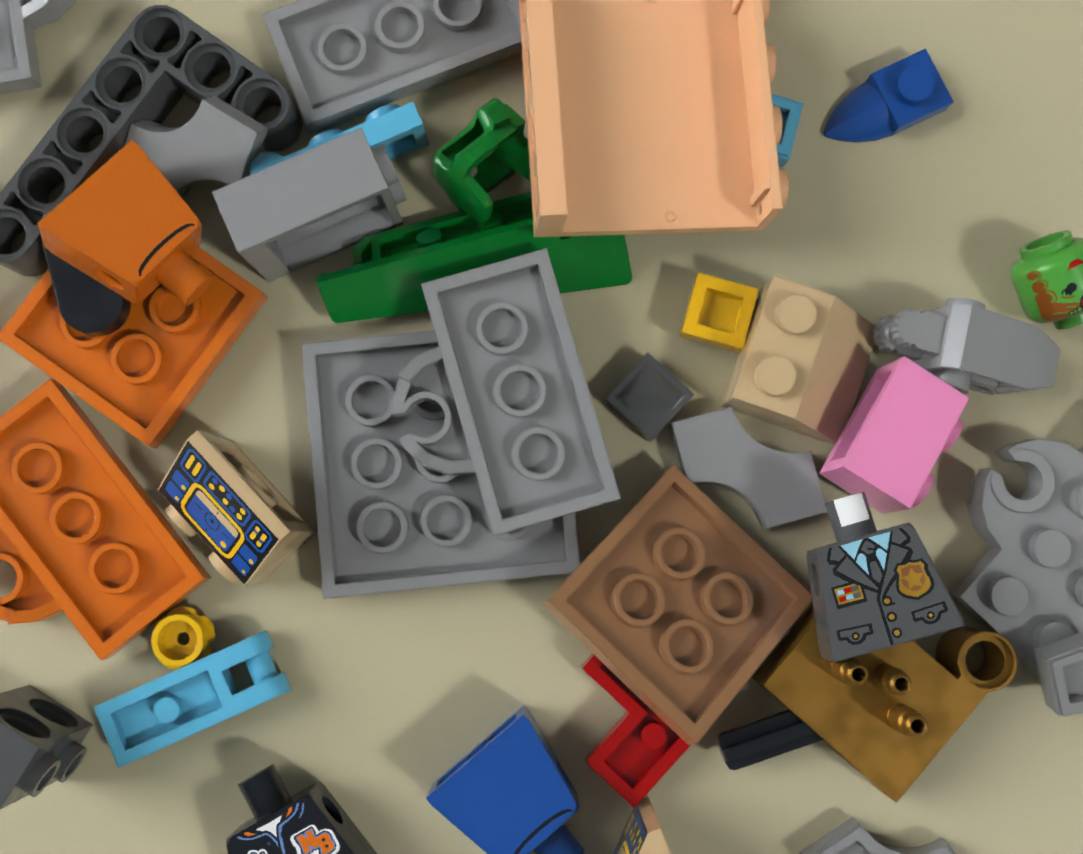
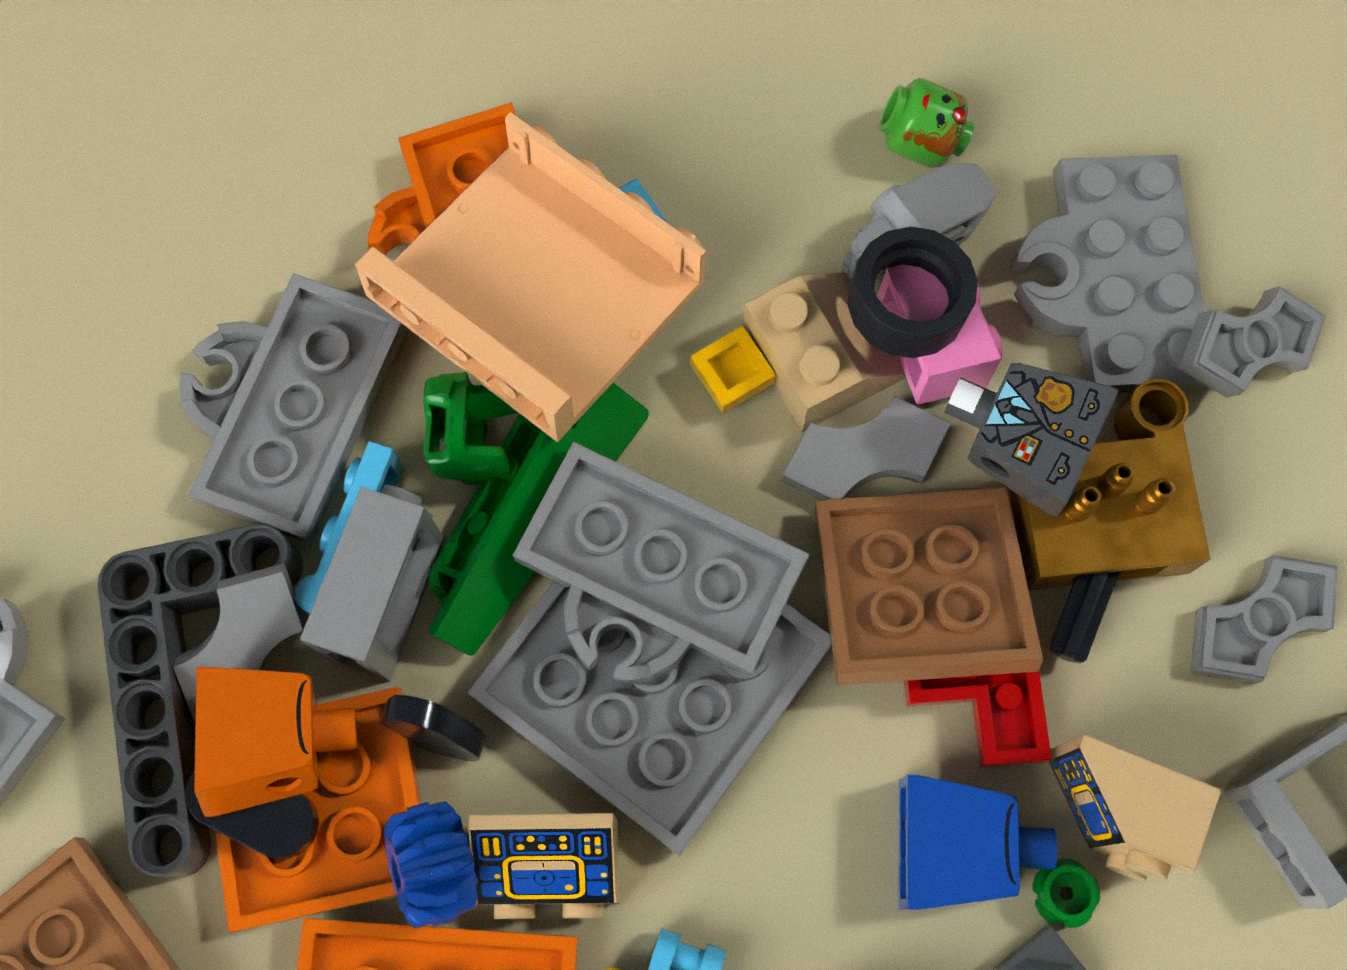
camera: 45 degrees left, 10 degrees down
(148, 433) = (430, 864): none -> blue gear
(251, 344) = (433, 727): none -> black tile
(649, 397) = (748, 475): dark grey tile -> none
(890, 101) = (690, 122): blue plate -> none
(946, 381) = (920, 249): none -> black tyre

